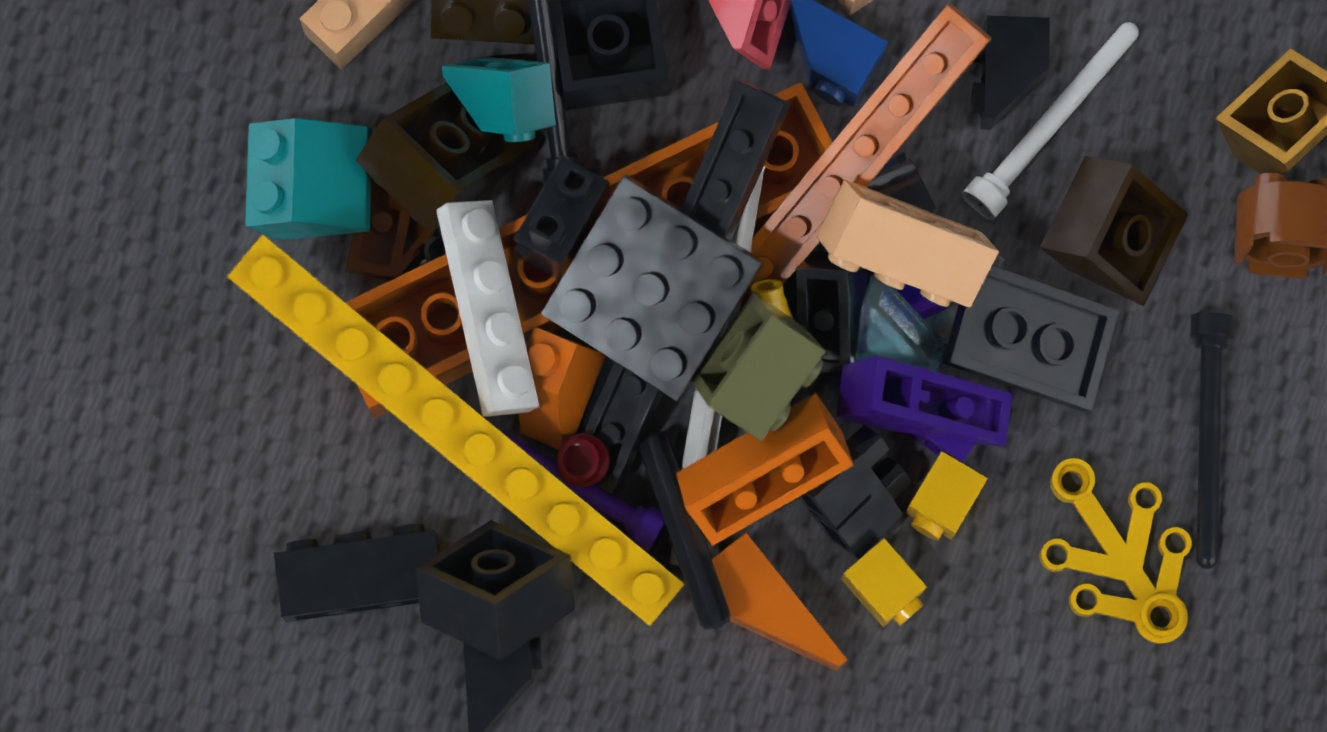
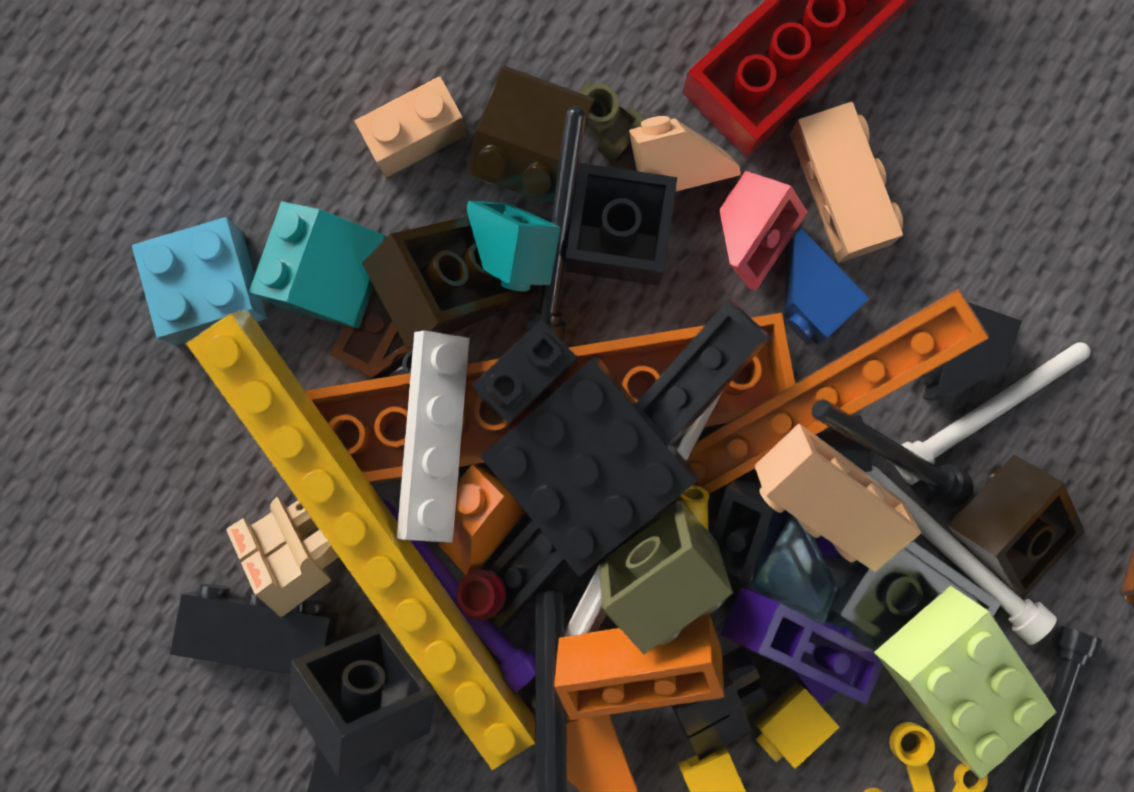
camera: 20 degrees right, 5 degrees up
(183, 233) = (196, 279): none -> medium azure brick
(365, 482) = (281, 557): none -> tan hips
(1026, 206) = (945, 483): none -> black piece
(1098, 392) = (966, 681): none -> yellowish green brick
(1151, 317) = (1029, 619): none -> white piece

